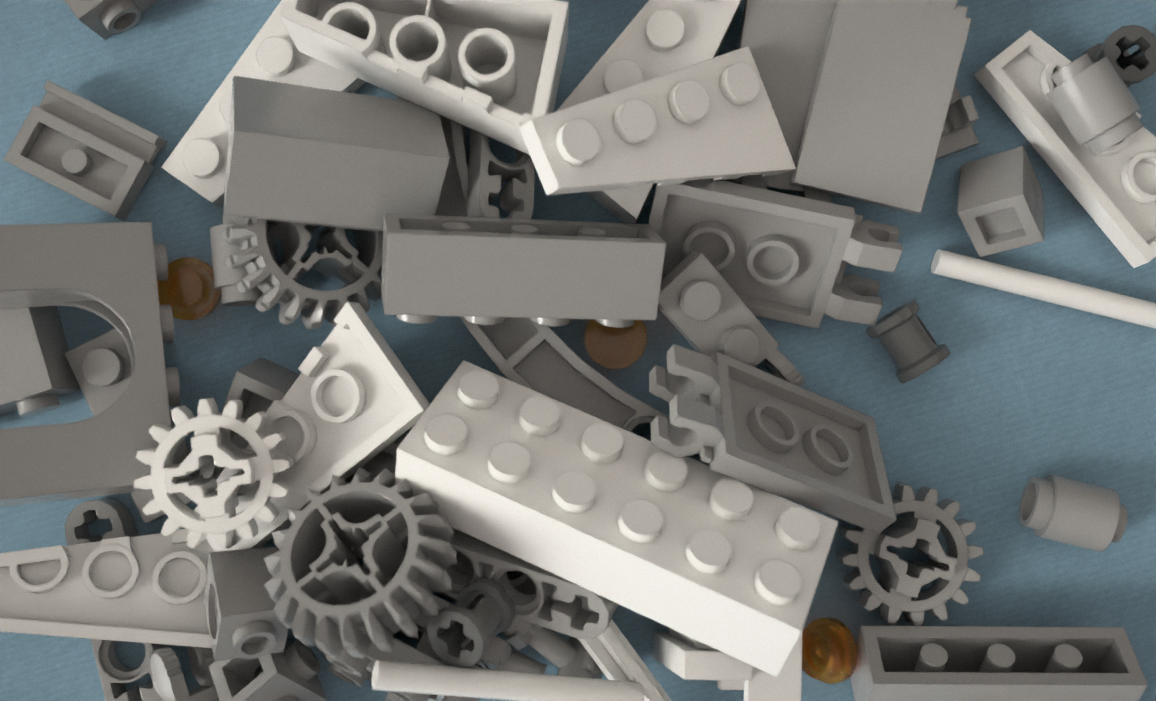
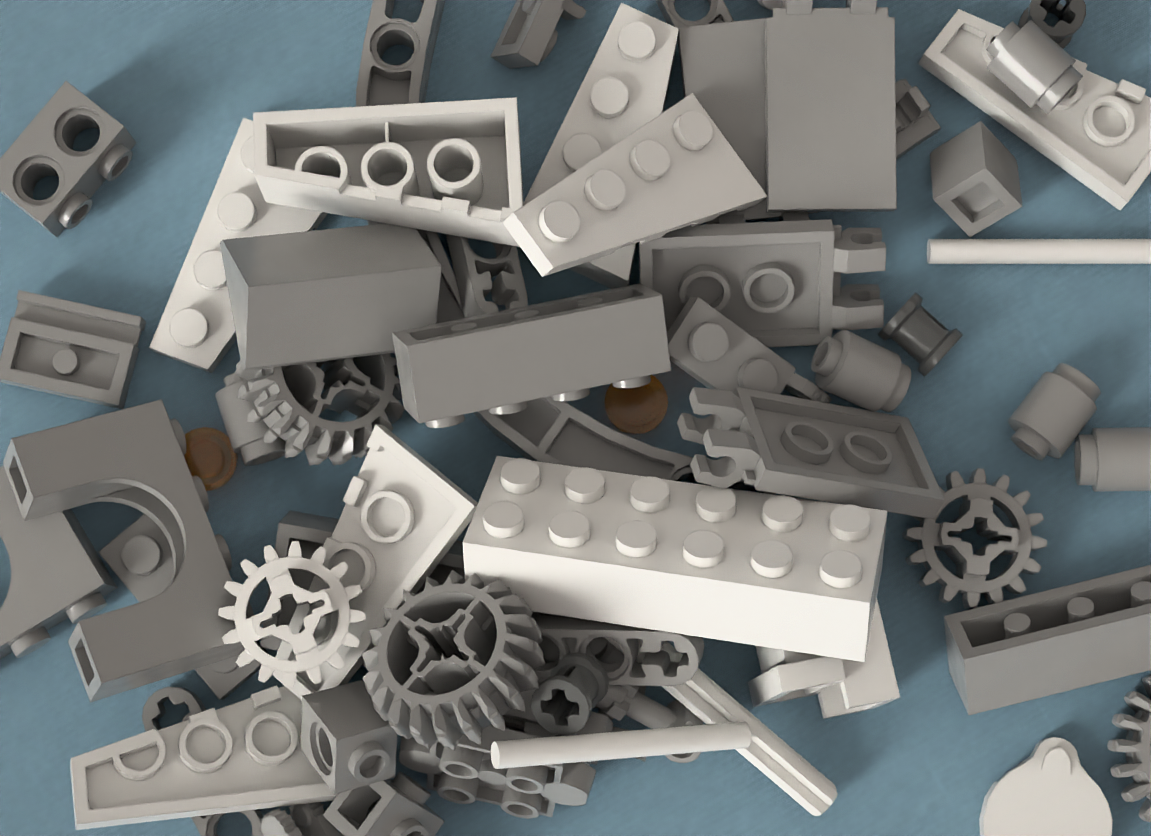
camera: 15 degrees left, 5 degrees down
(828, 650) = (919, 652): clear orange plate -> none
(841, 364) = (860, 372): none -> light grey brick
(1019, 450) = (1054, 412): none -> light grey brick

